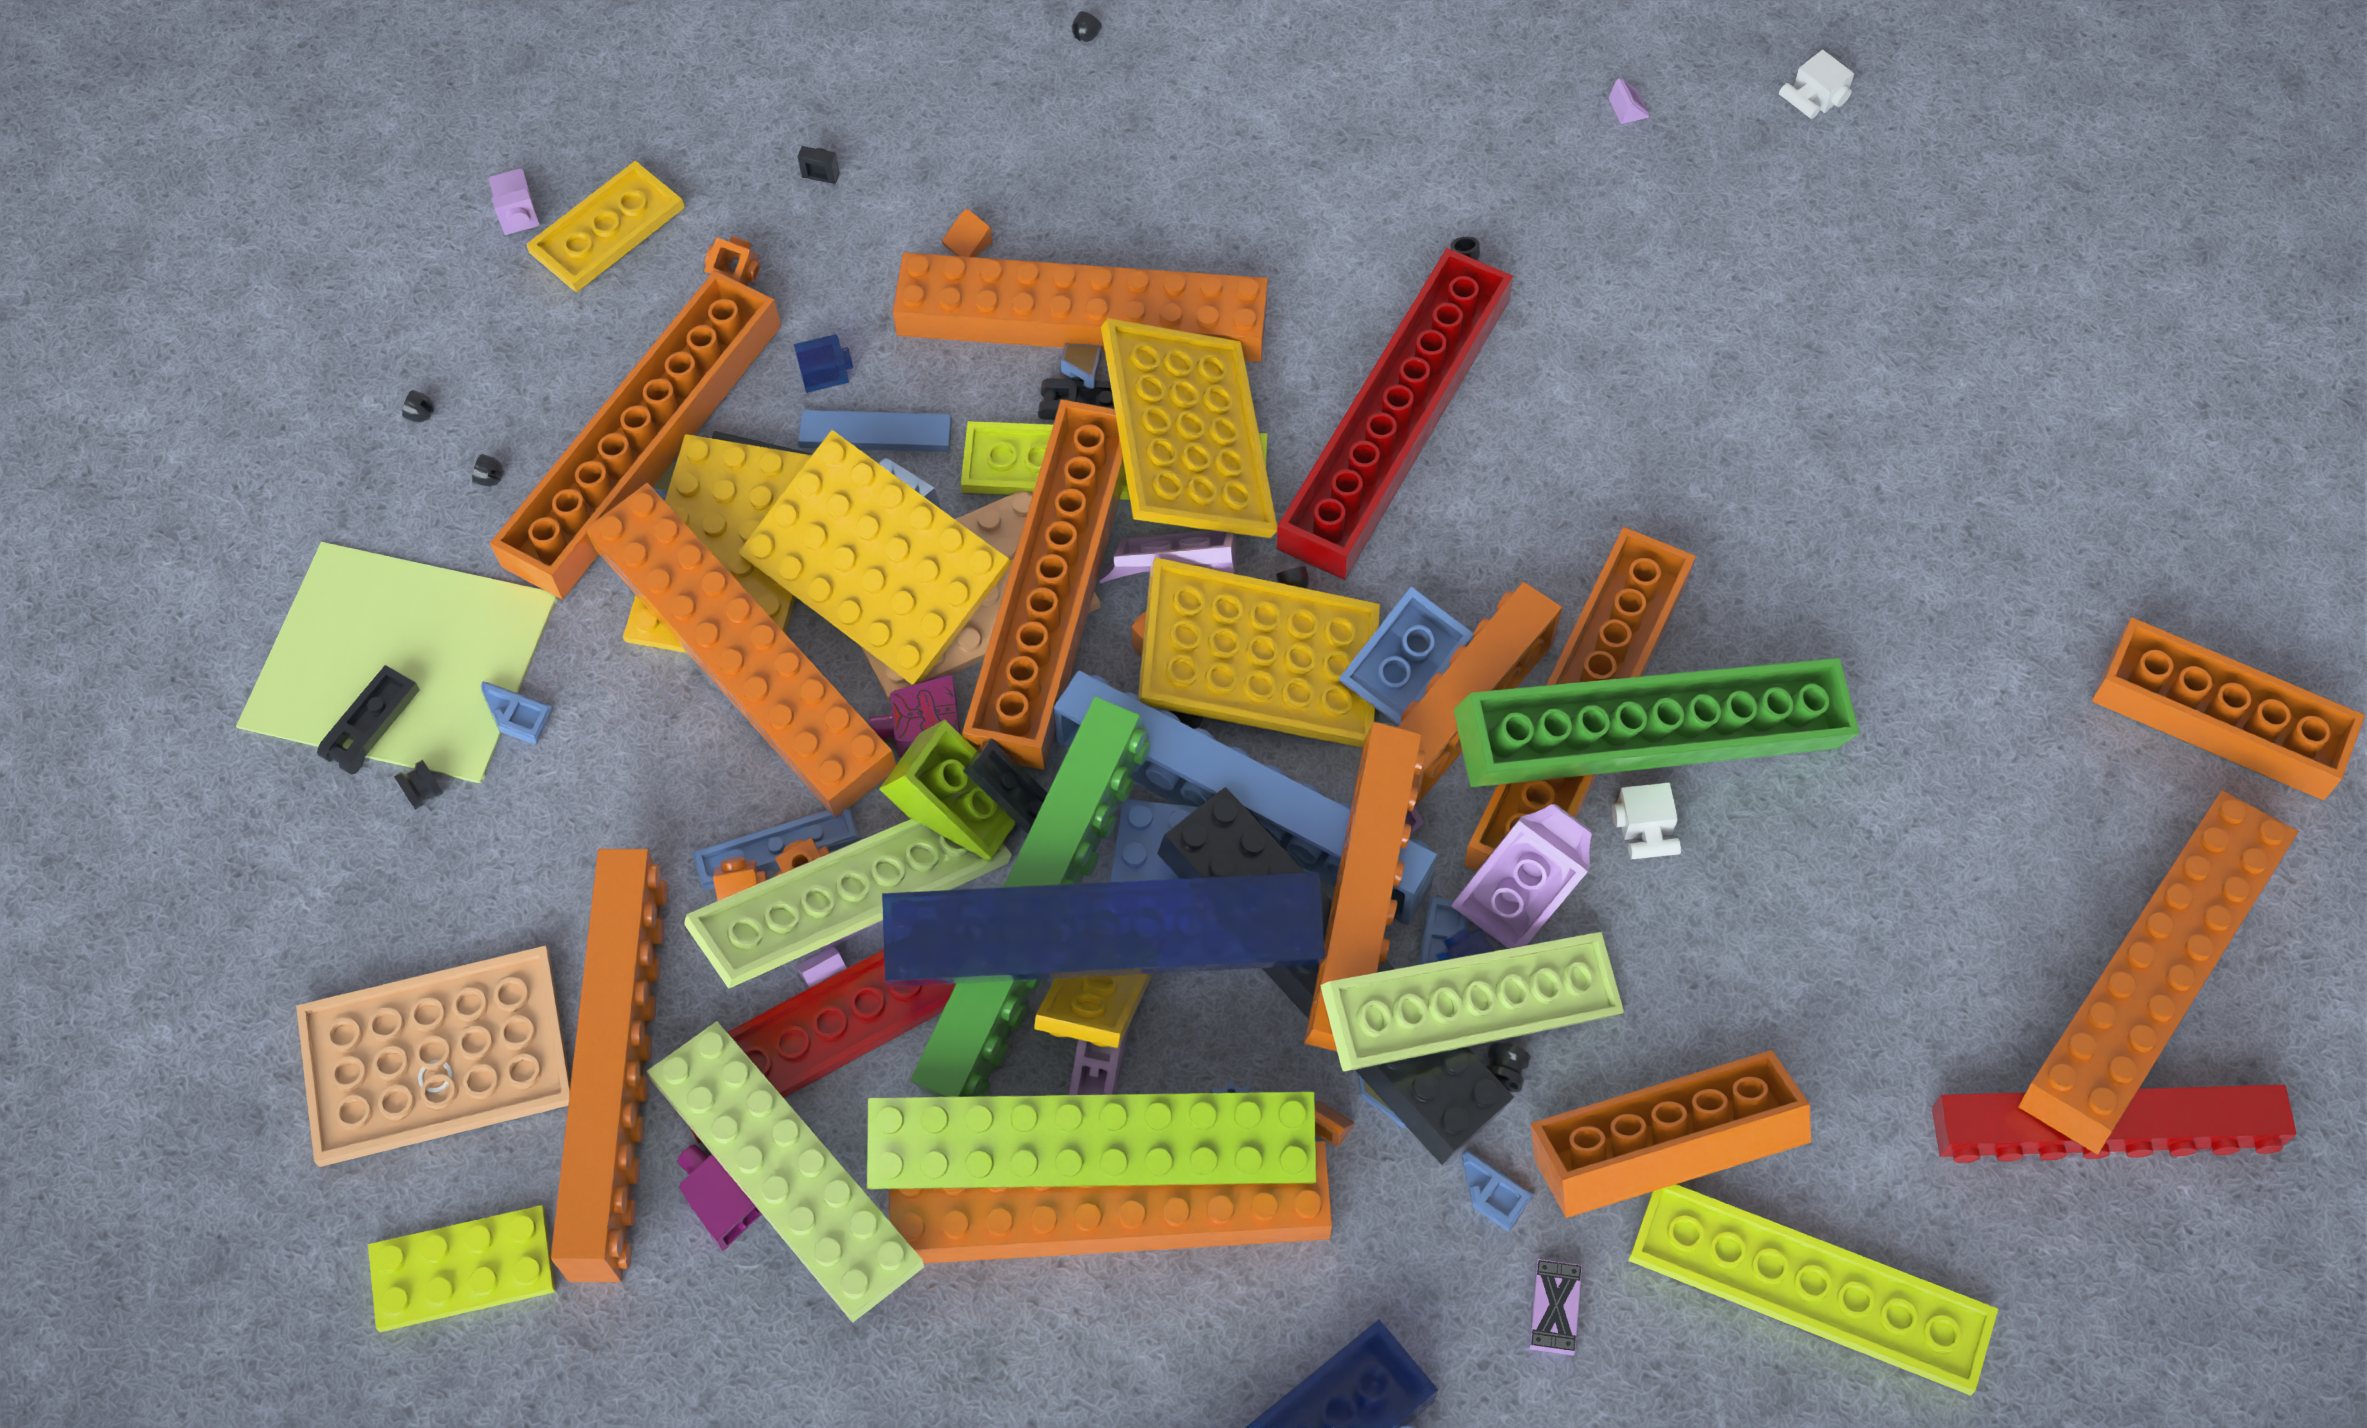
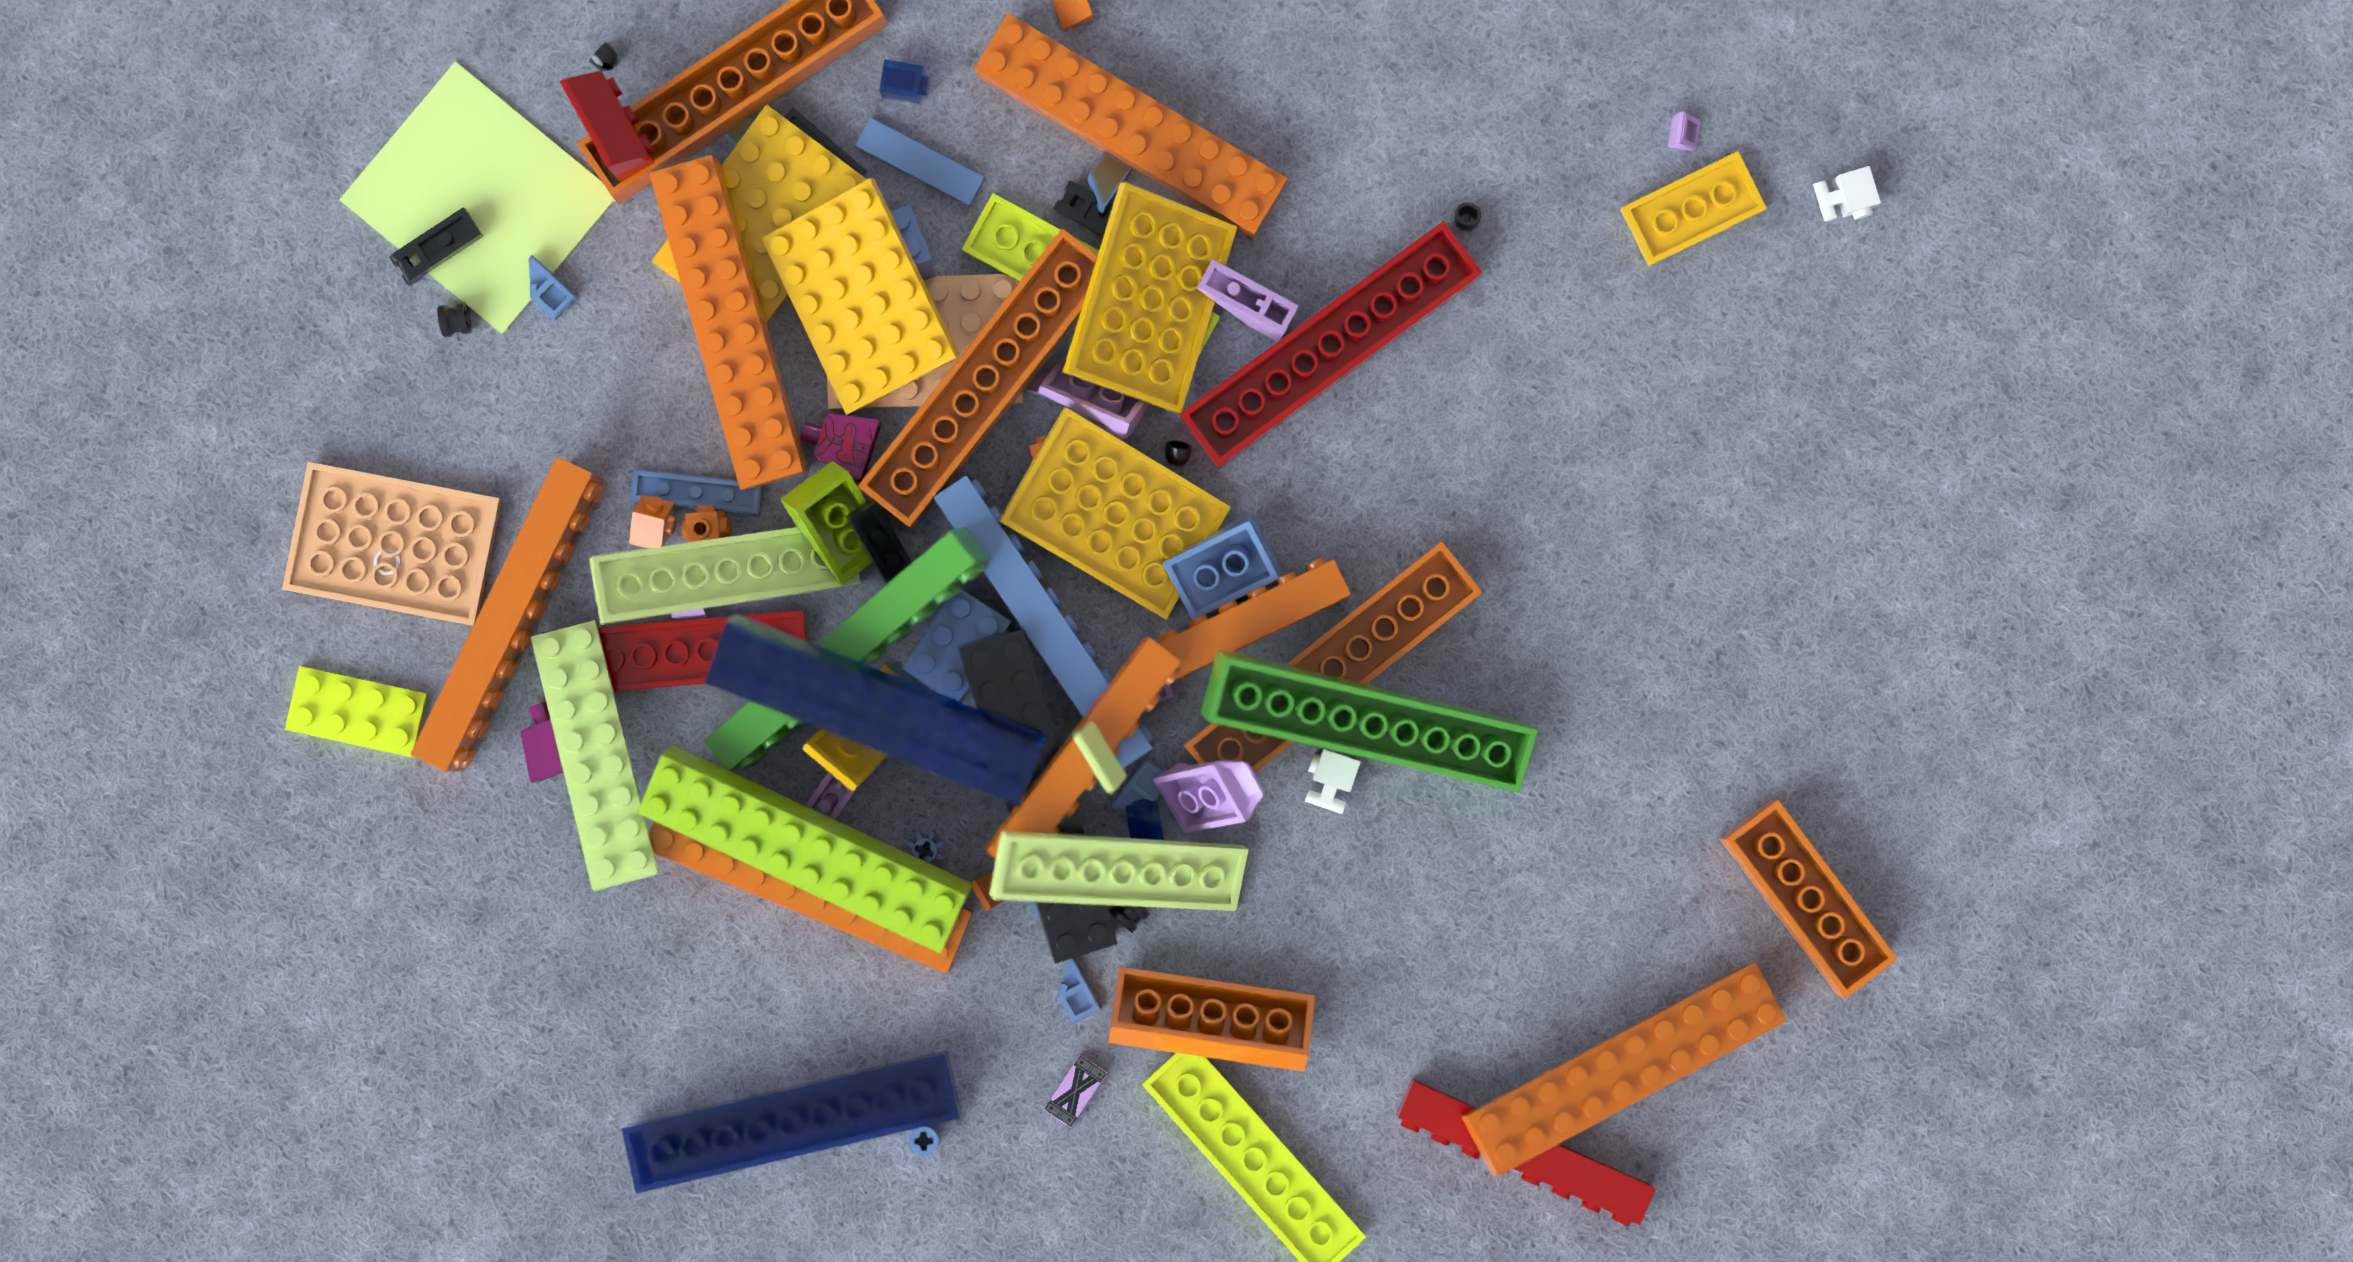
camera: 25 degrees right, 25 degrees up
(518, 499) = (609, 123): none -> red slope
(1295, 402) = (1248, 300): none -> lavender slope
(1384, 868) = (1099, 756): none -> yellowish green slope
(1679, 158) = (1693, 208): none -> yellow plate

